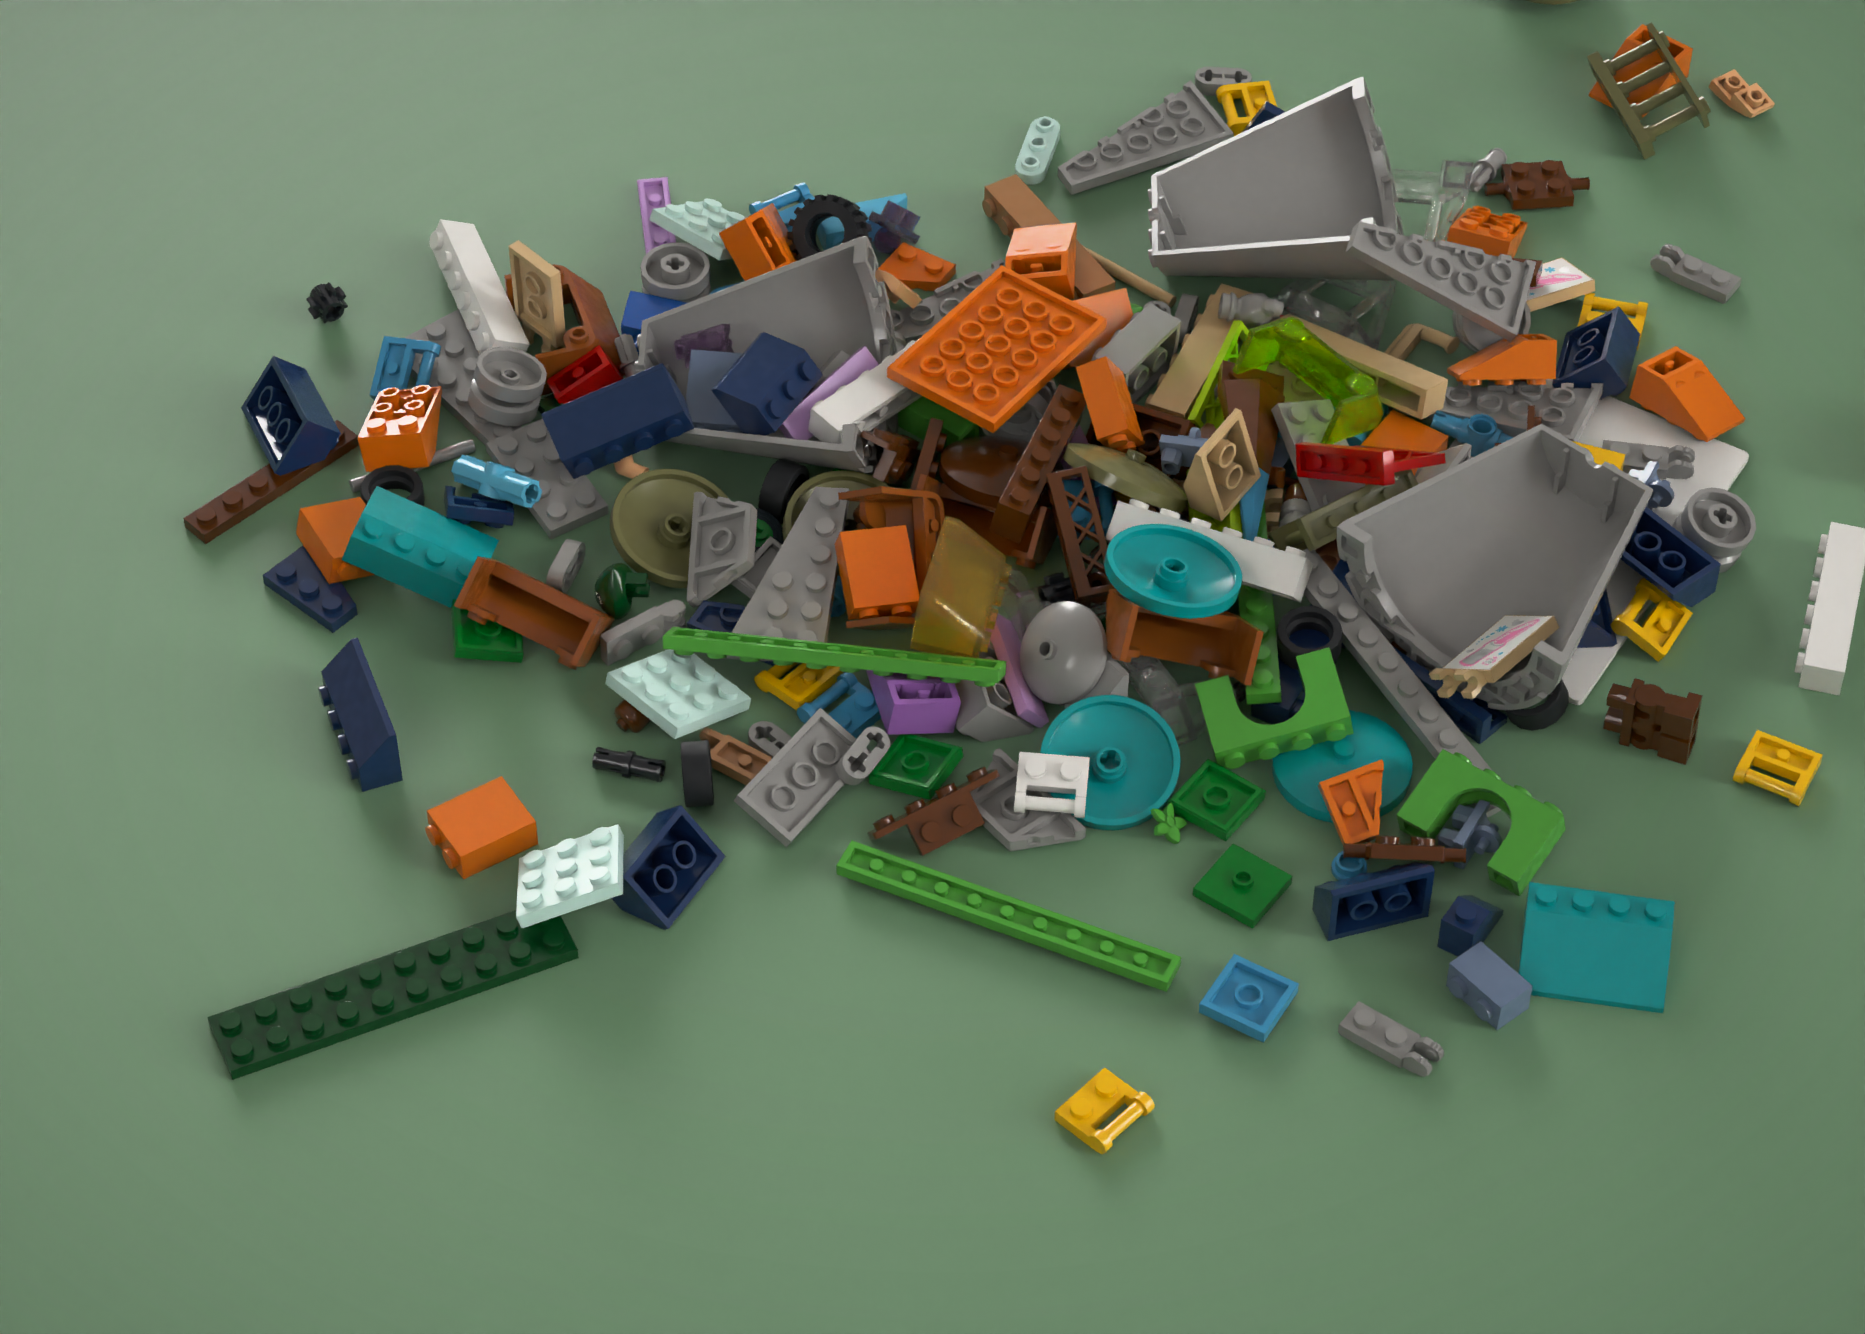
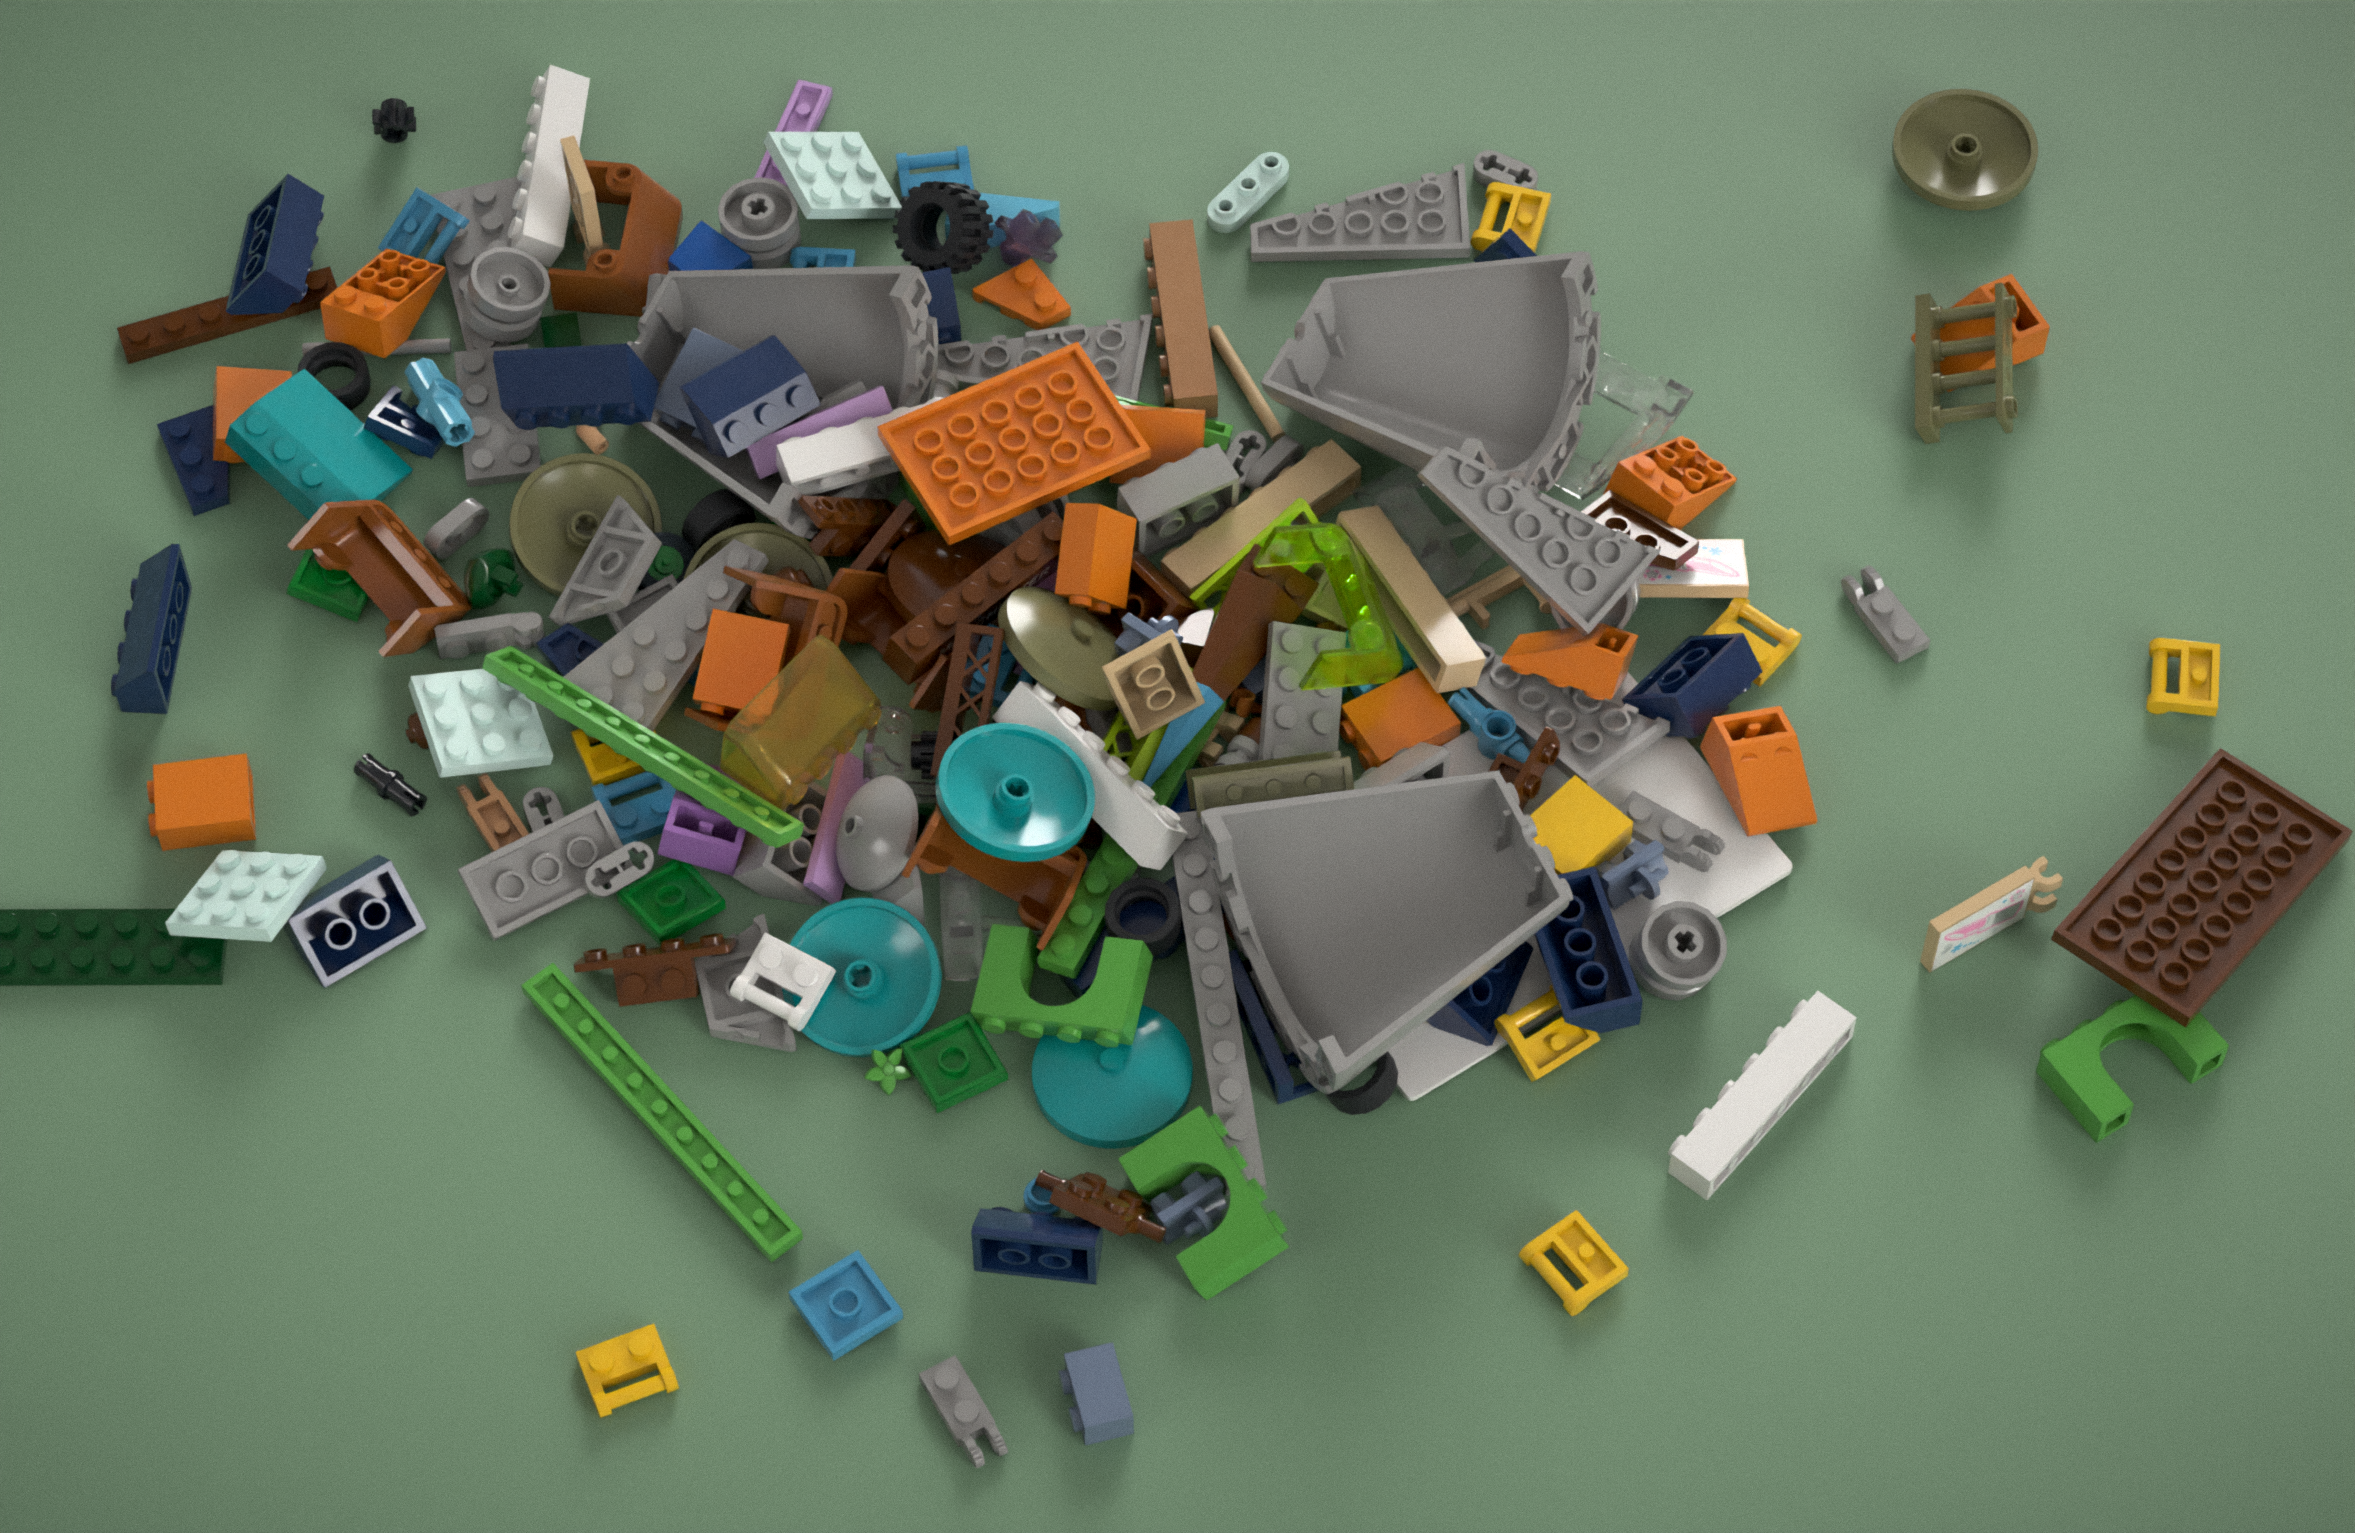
camera: 25 degrees right, 10 degrees up
(584, 376) = (600, 313): red slope -> none
(697, 773) = (439, 826): black tyre -> none
(709, 339) = (722, 322): clear purple hips -> none
(759, 243) = (859, 214): orange slope -> none
(897, 290) = (979, 316): light nougat slope -> none
(1045, 256) = (1145, 343): orange slope -> none
(1242, 885) = (922, 1172): green plate -> none
(1252, 309) = (1331, 487): light grey animal -> none
(1355, 802) = (1086, 1127): orange wing -> none
(1359, 462) = (1316, 731): red fence -> none
(1467, 924) = (1125, 1311): dark blue slope -> none
(1486, 169) = (1726, 395): light grey axle -> none
(1493, 653) = (1316, 1015): tile -> none
(1537, 185) = (1775, 435): reddish brown plate -> none
(1596, 946) = (1238, 1396): teal slope -> none
(1654, 719) = (1465, 1156): reddish brown hips -> none
(1739, 95) = (2088, 399): light nougat slope -> none

